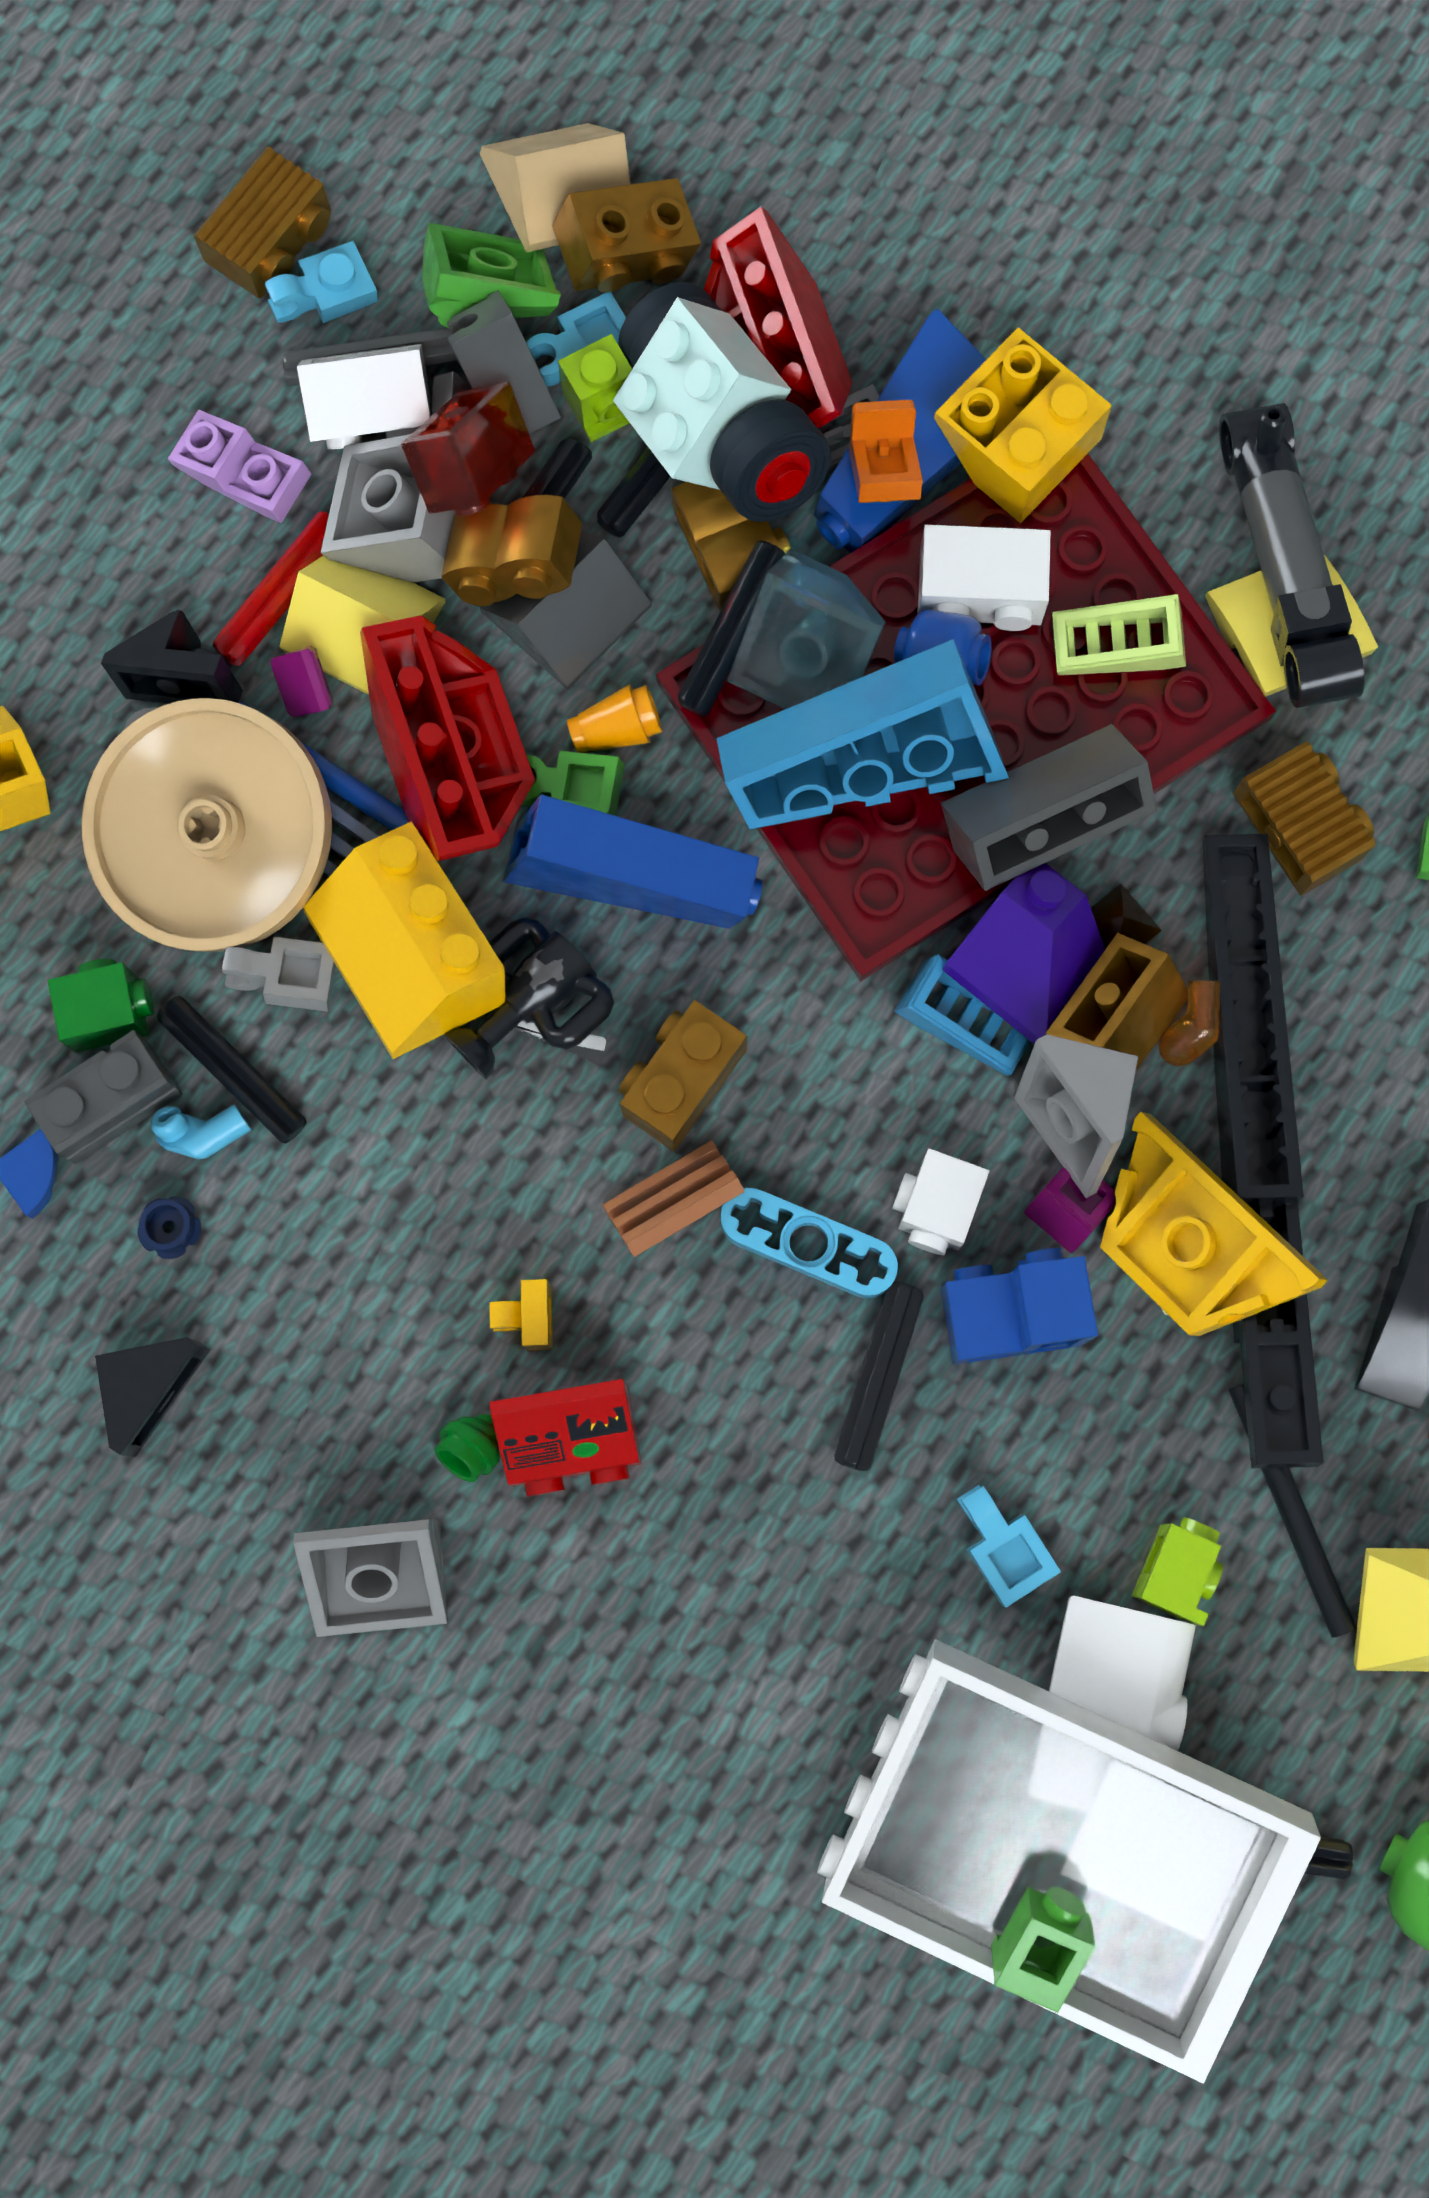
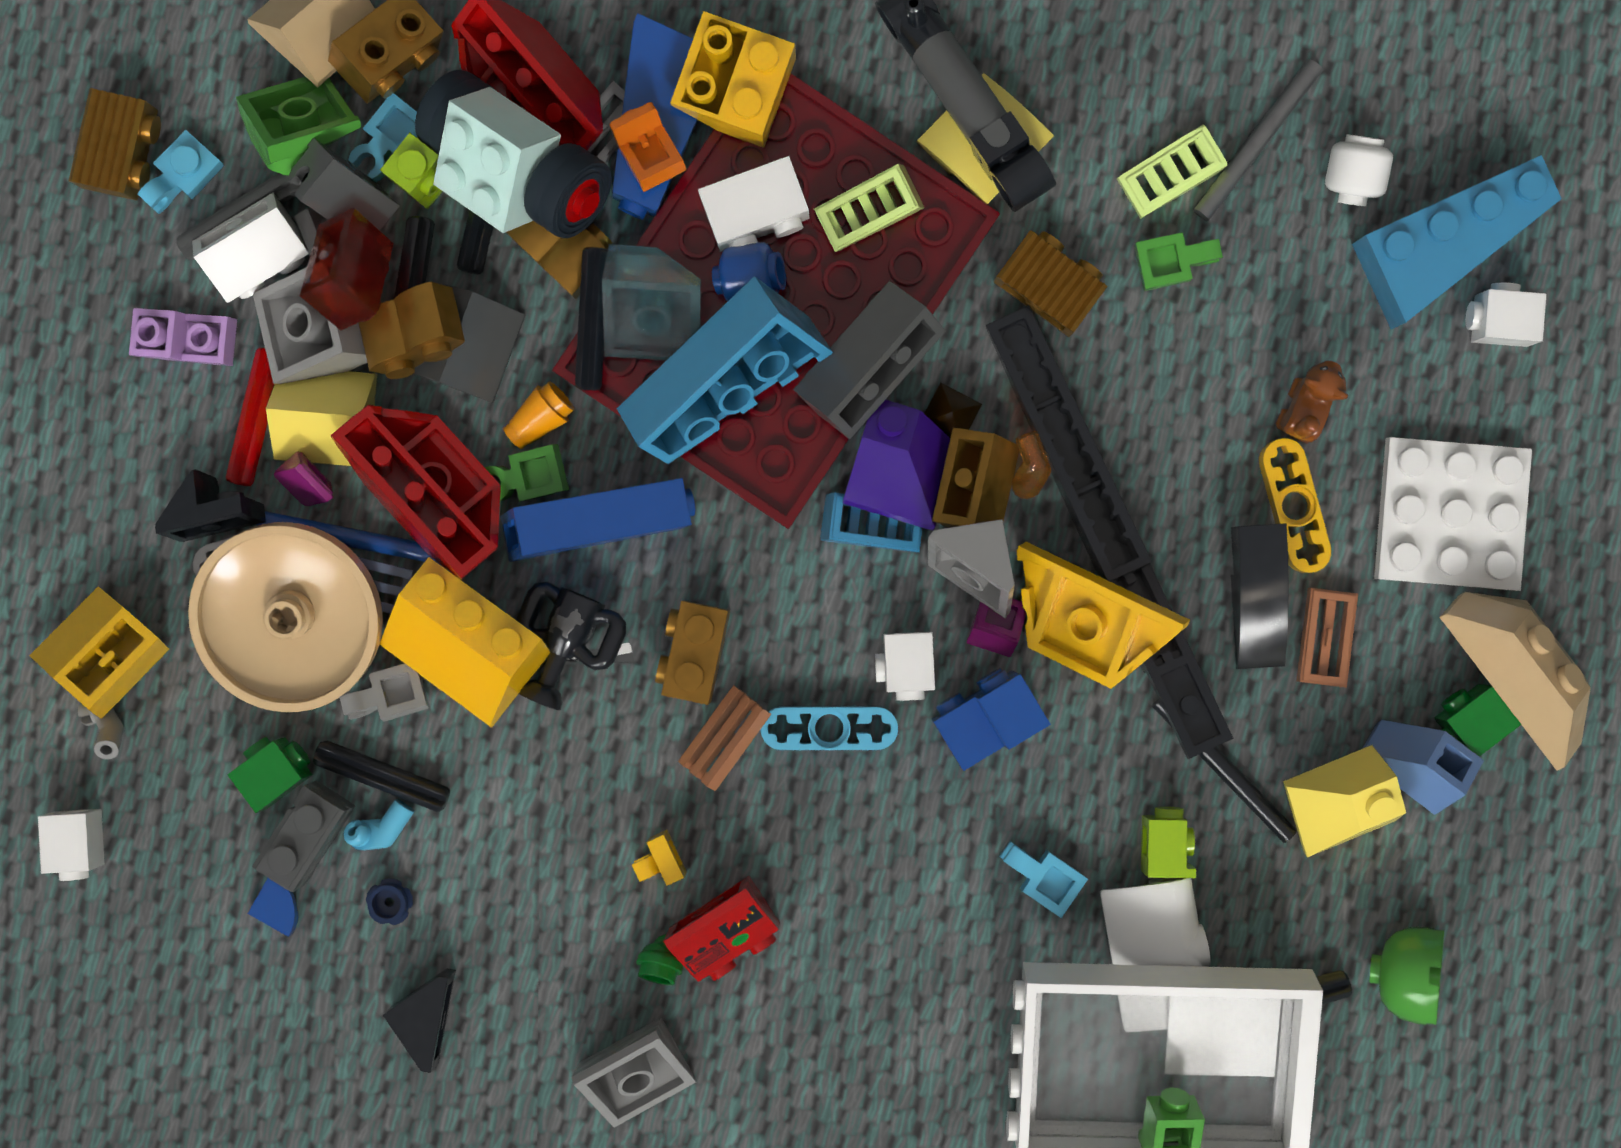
camera: 30 degrees left, 10 degrees up
(878, 1376) = (914, 798): black axle -> none

